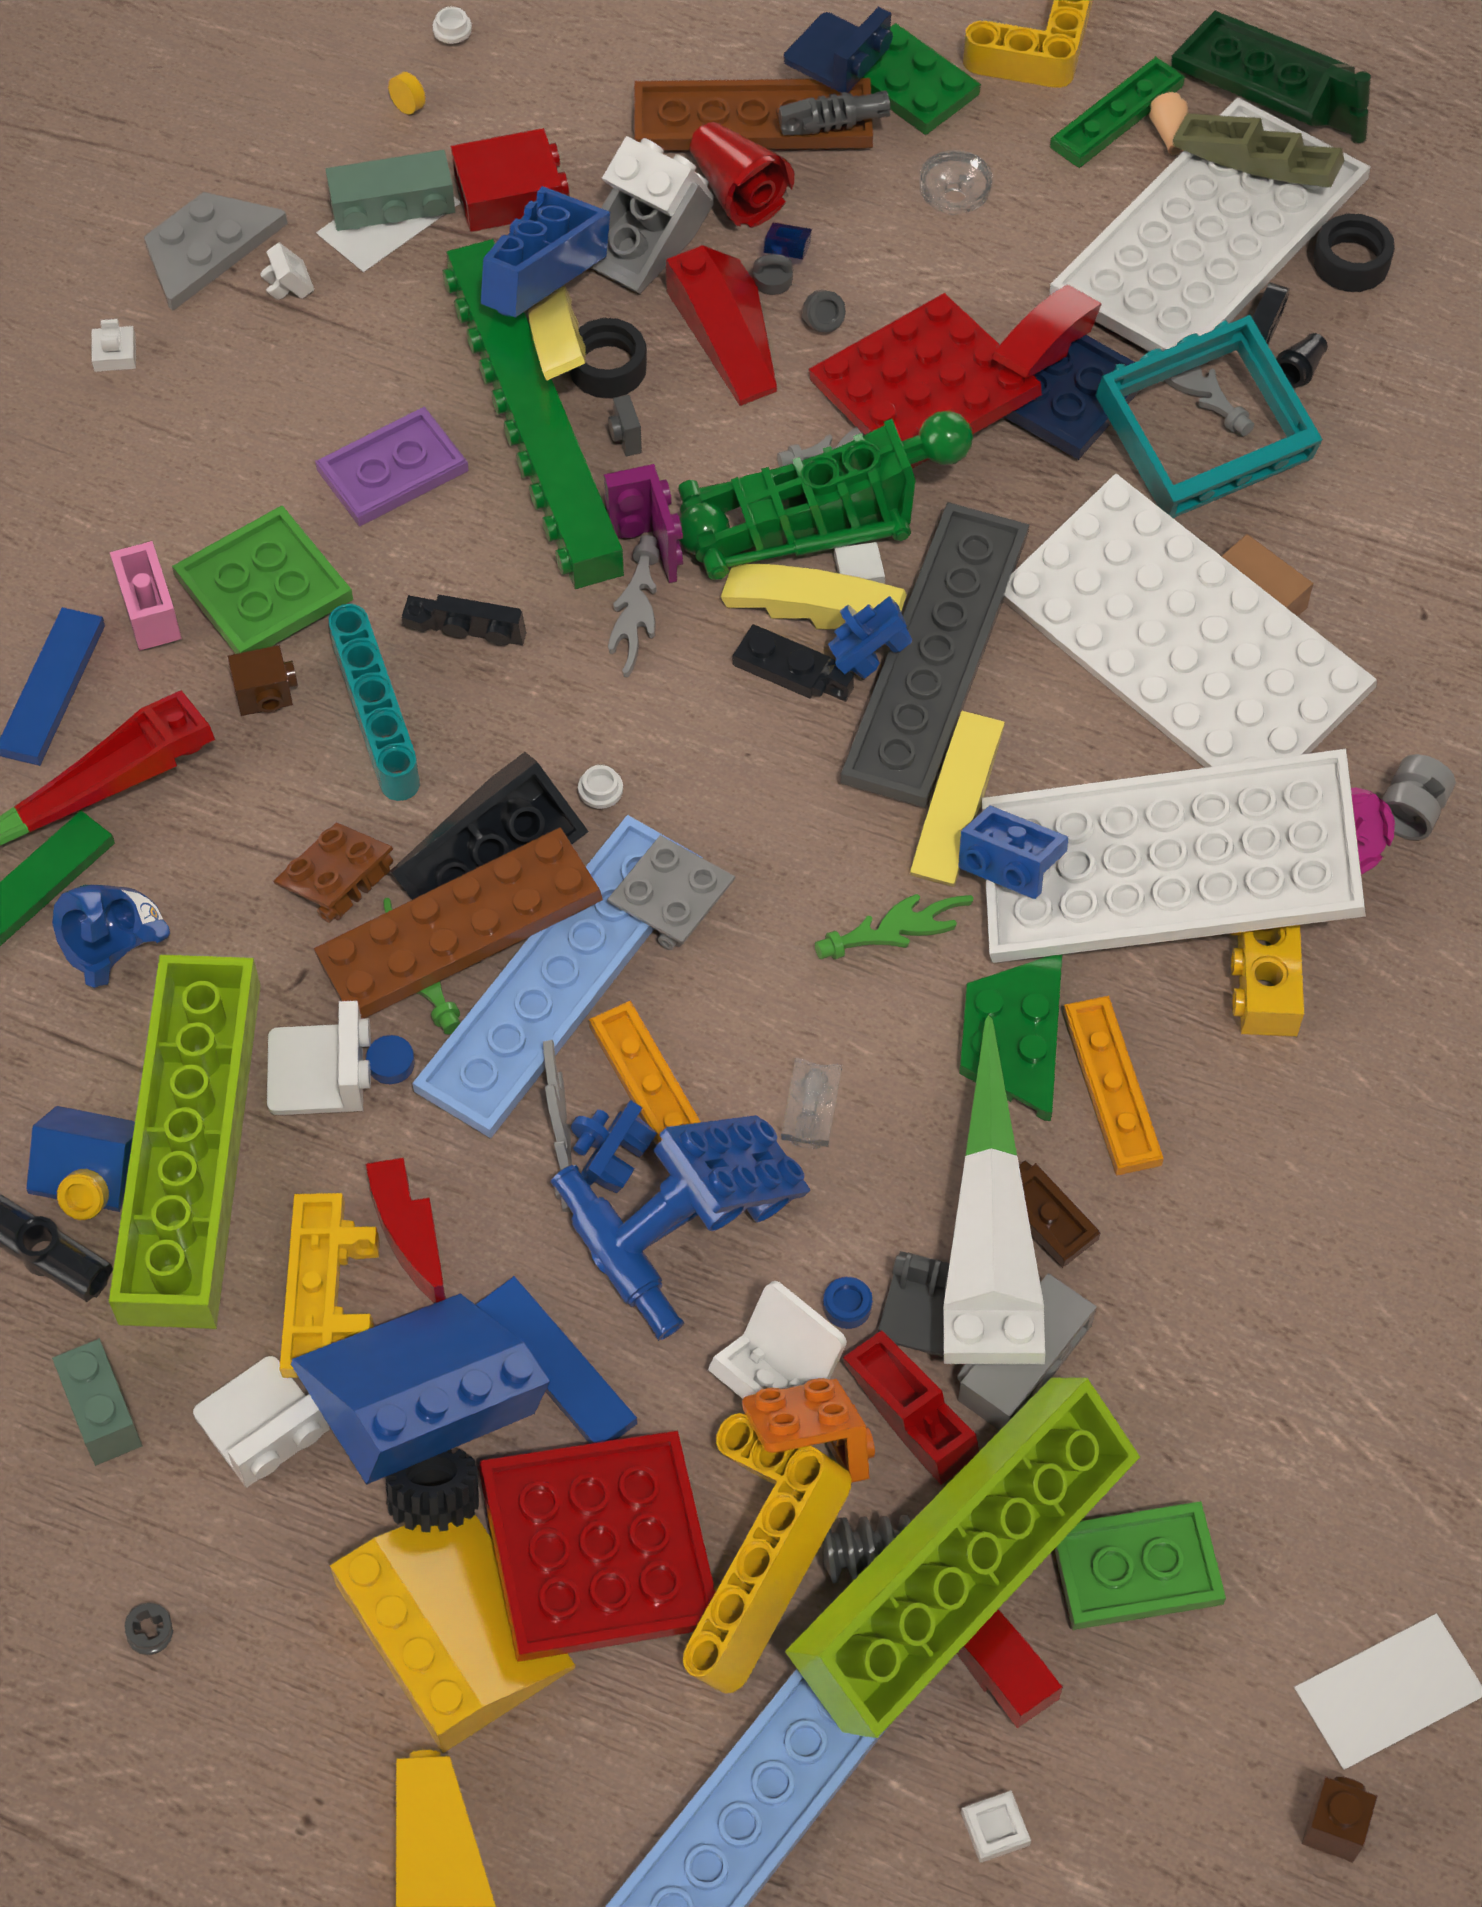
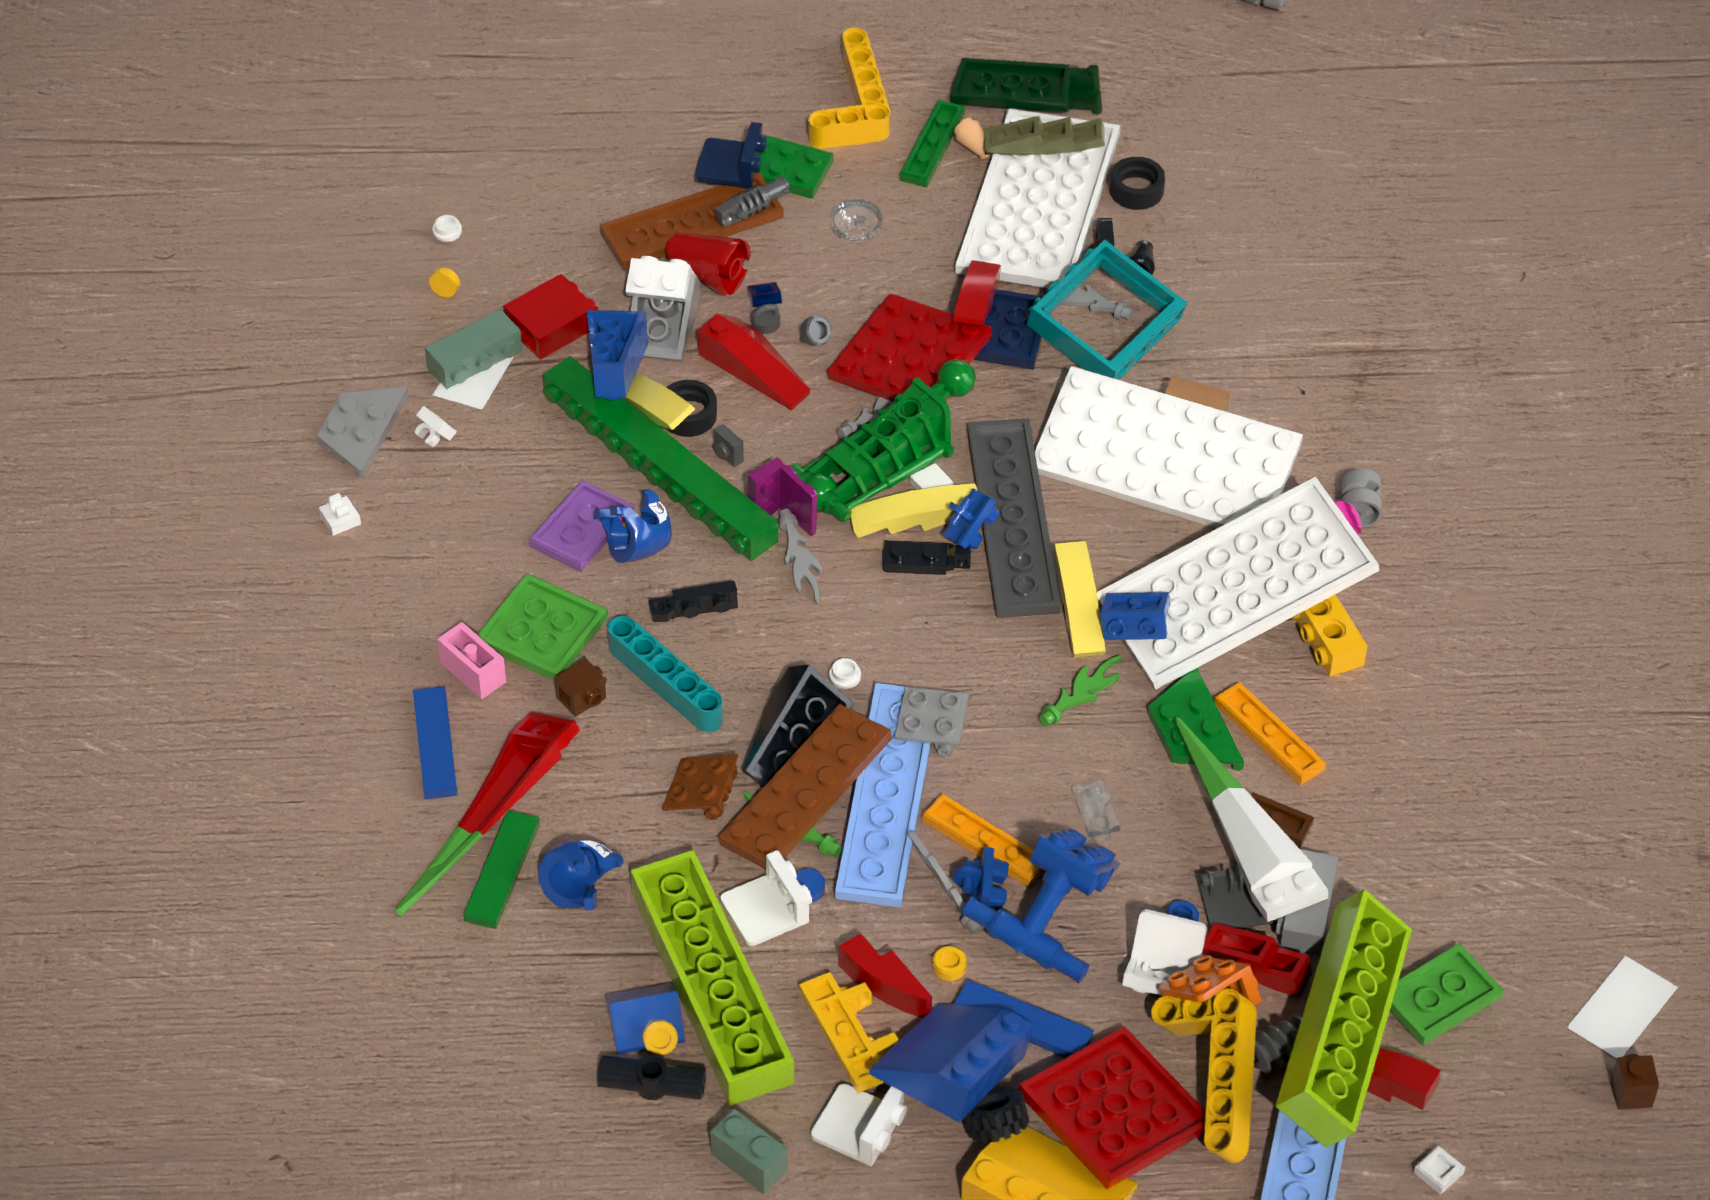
camera: 25 degrees left, 10 degrees down
(445, 514) = (644, 534): none -> blue piece
(508, 1242) = (949, 963): none -> yellow tile

